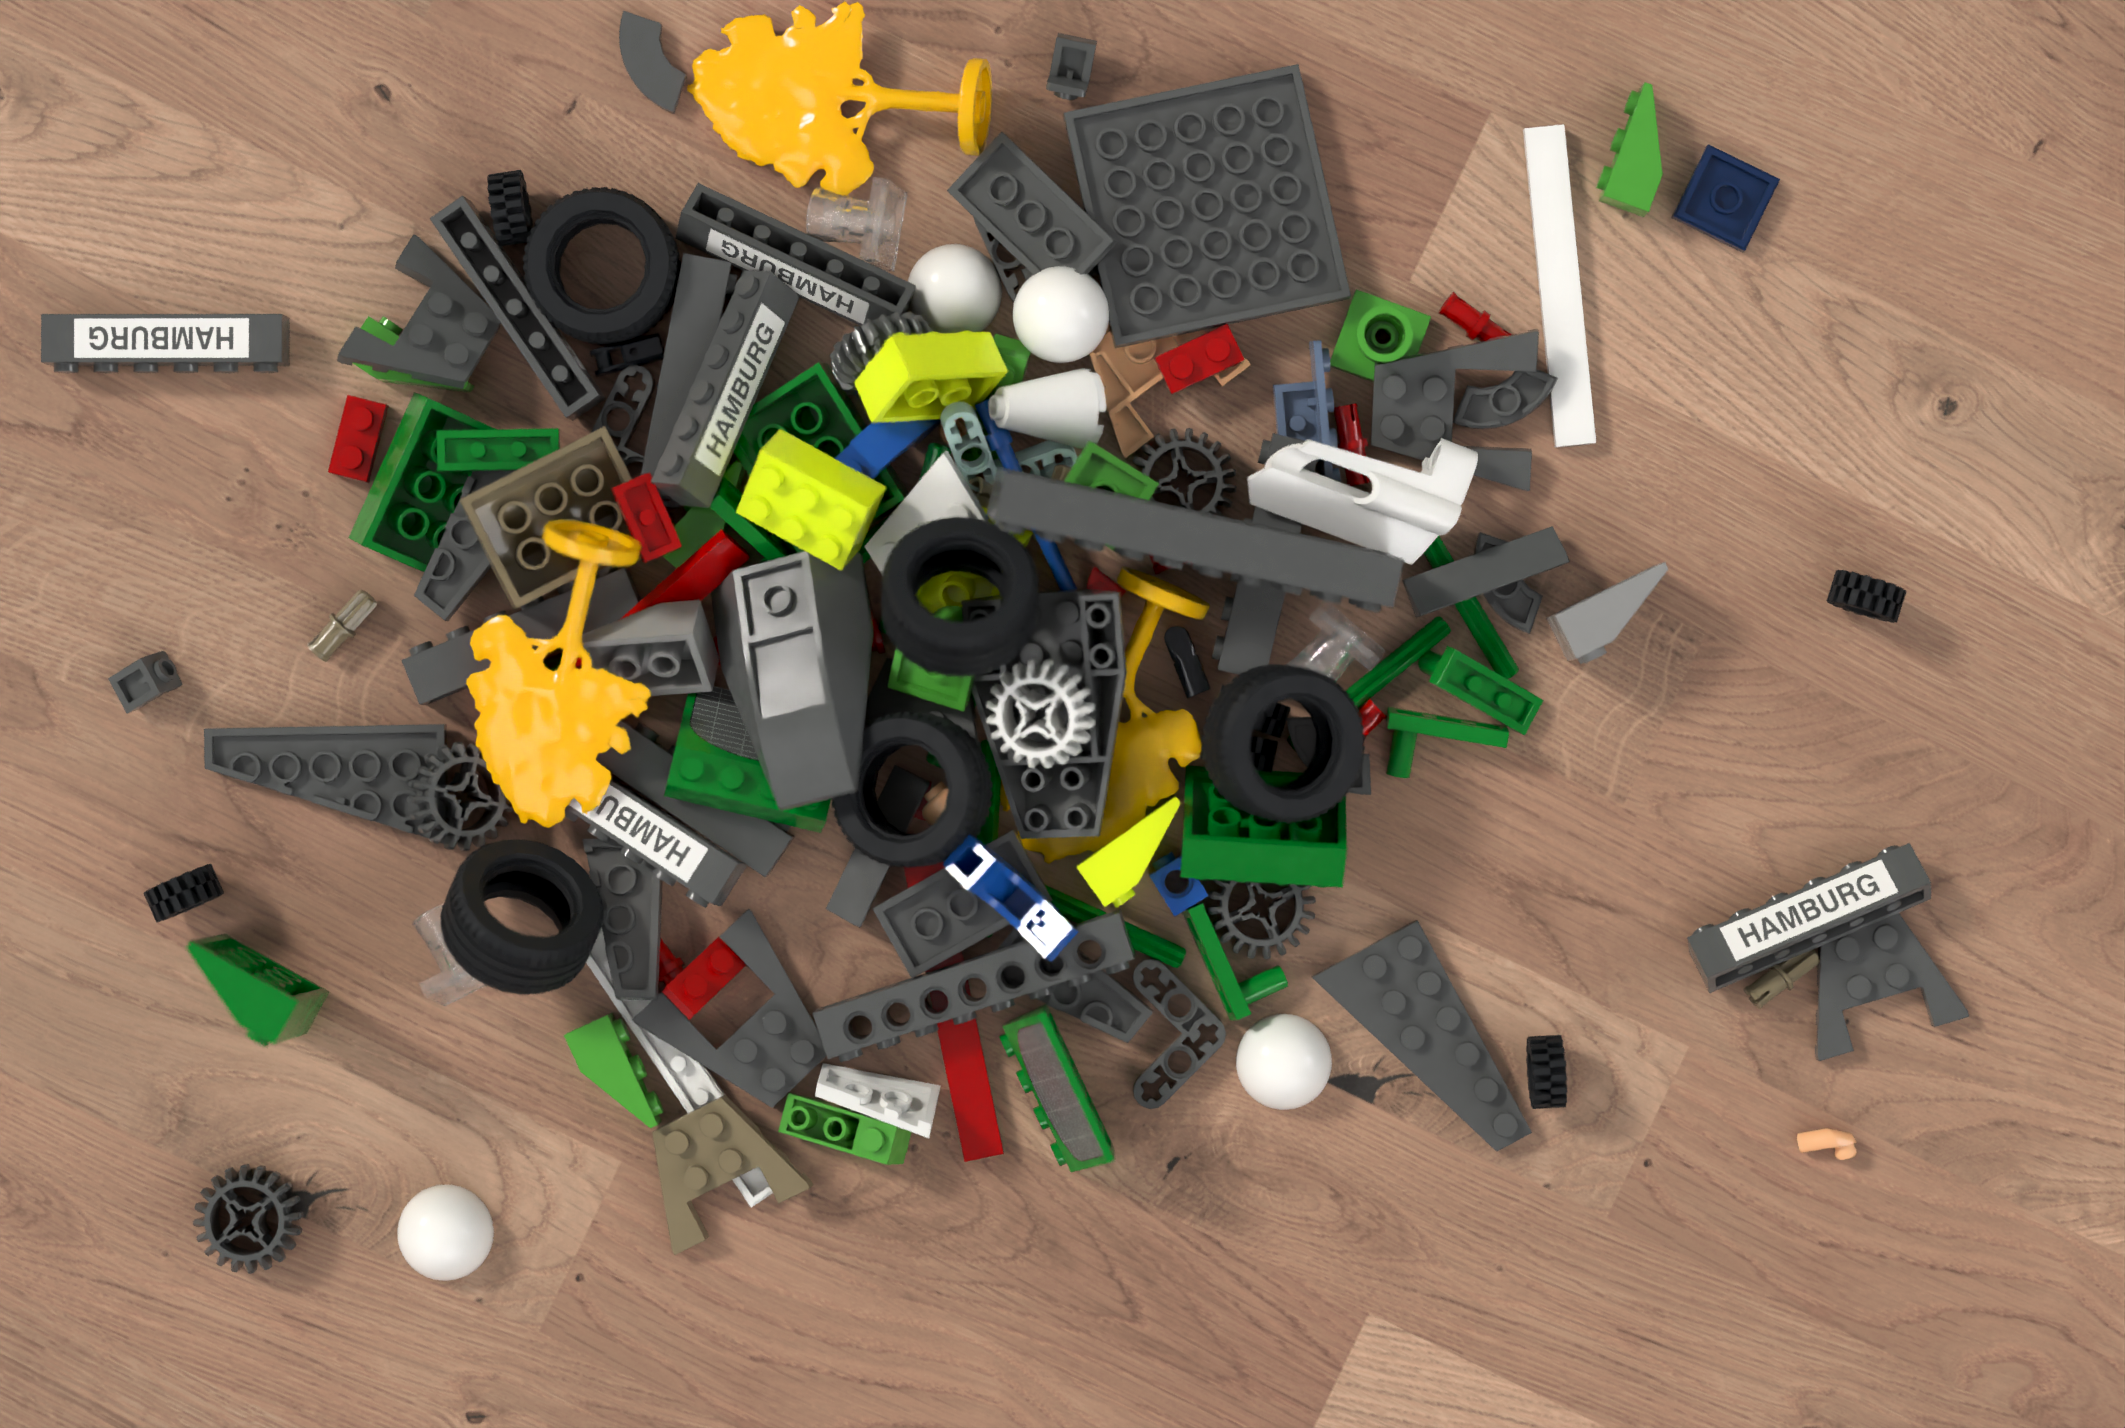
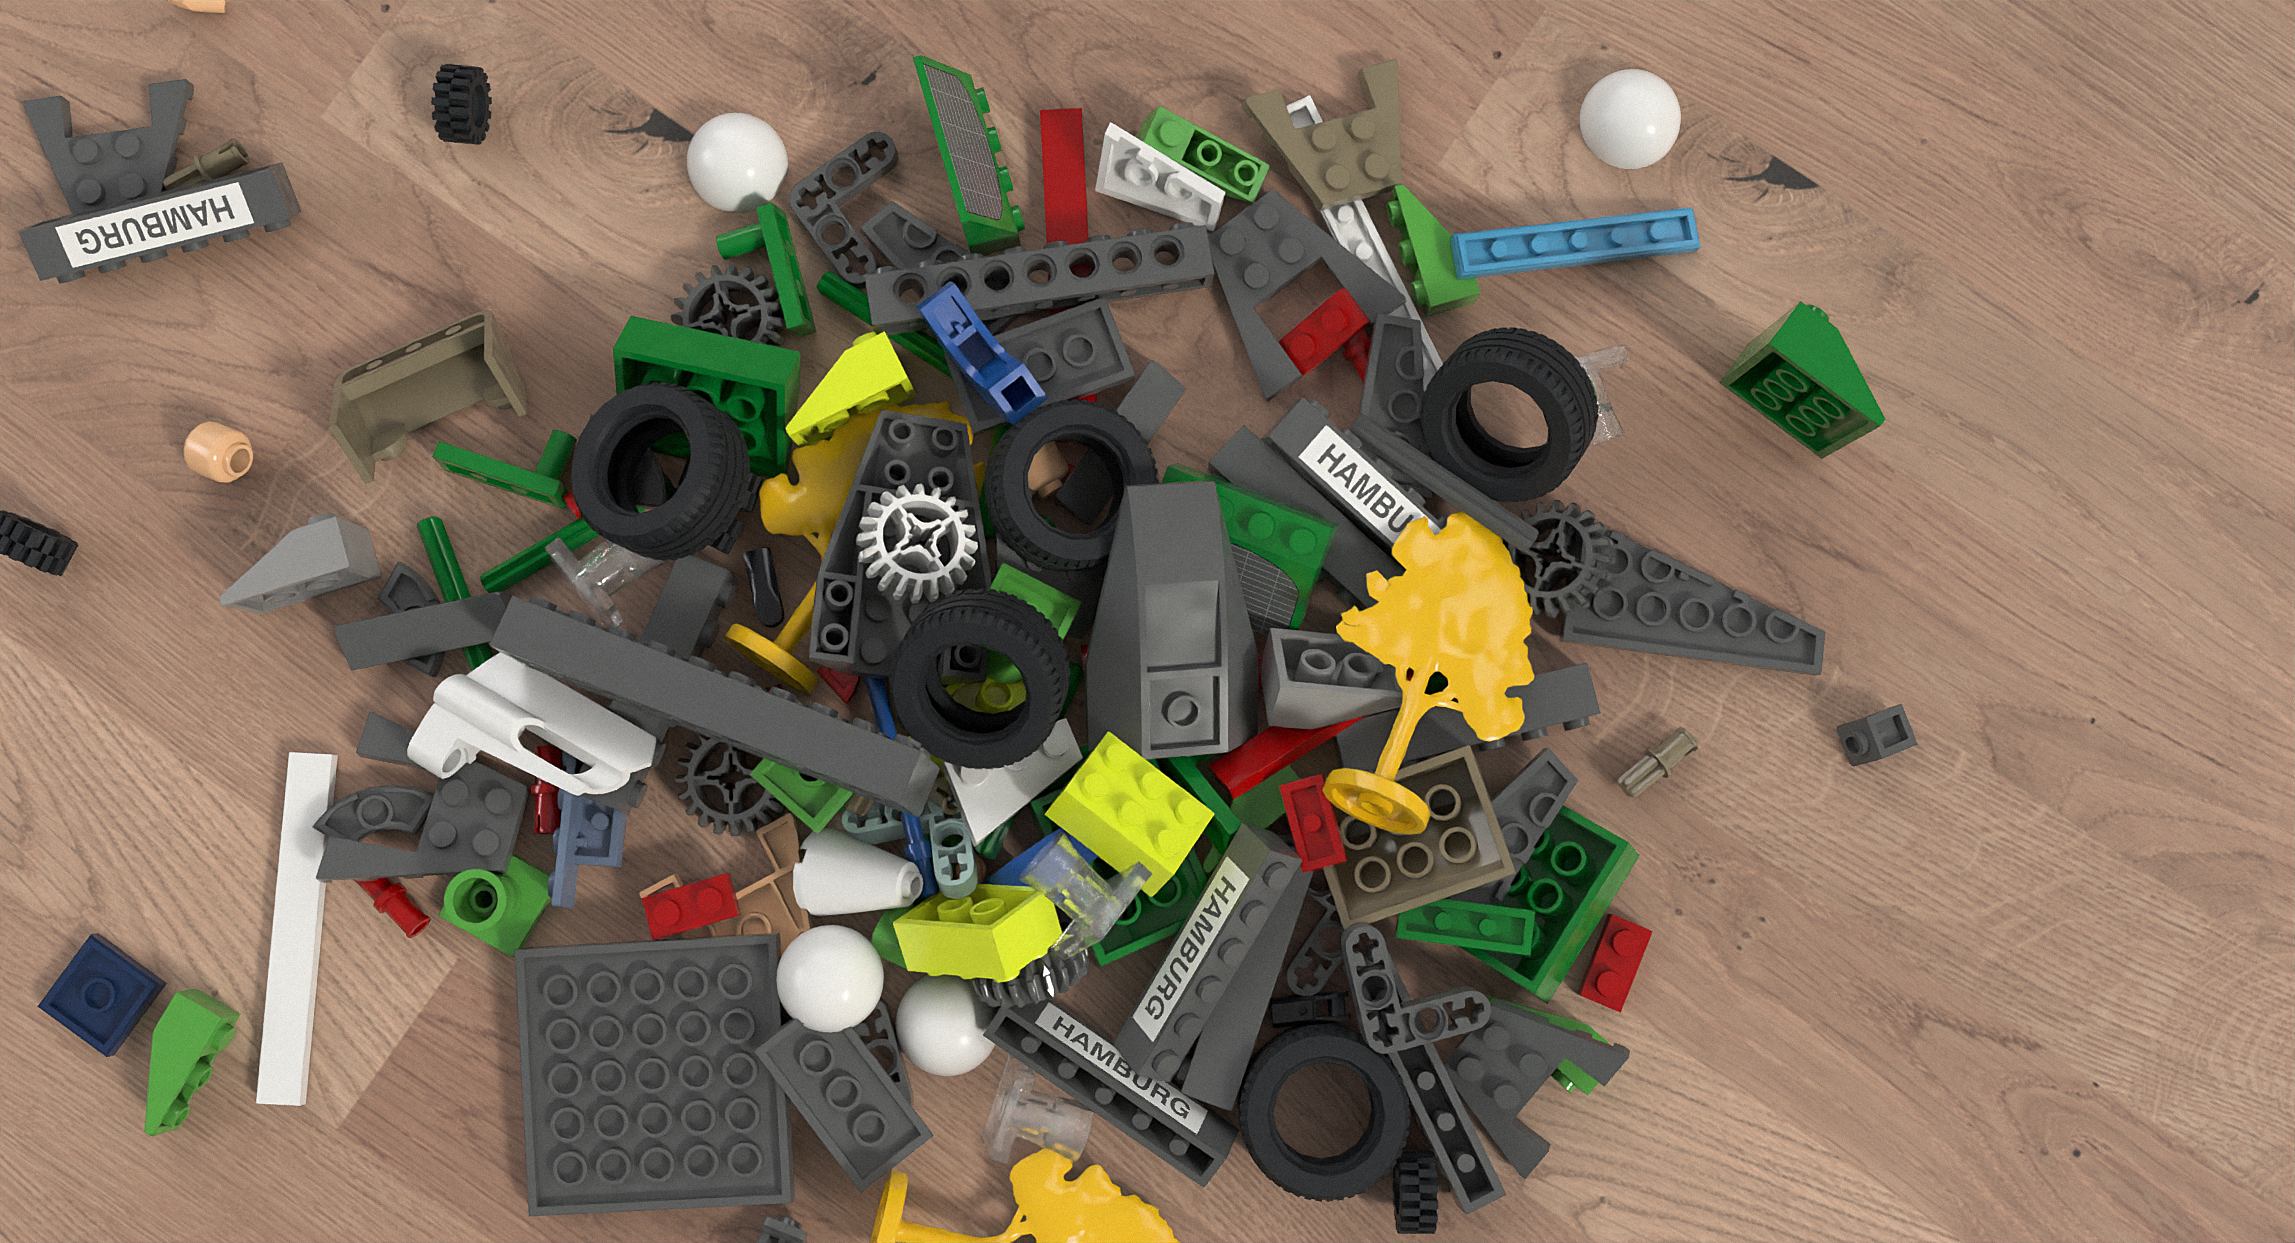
camera: 170 degrees left, 5 degrees down
(165, 341) = (1813, 1103): dark grey brick -> none
(183, 893) = (1865, 501): black tyre -> none
(261, 1232) = (1821, 130): dark grey gear -> none
(481, 1098) = (1574, 243): none -> dark azure tile
(544, 360) = (1402, 1015): none -> dark grey beam
(573, 848) = (1444, 483): none -> dark grey axle
(833, 417) = (1081, 893): none -> clear plant
(1176, 901) = (808, 339): blue brick -> none
(1416, 1013) = (591, 191): dark grey wing -> none
(1481, 688) = (458, 511): green piece -> none
(1535, 806) = (421, 383): none -> dark tan windscreen
(1715, 708) = (218, 452): none -> light nougat head

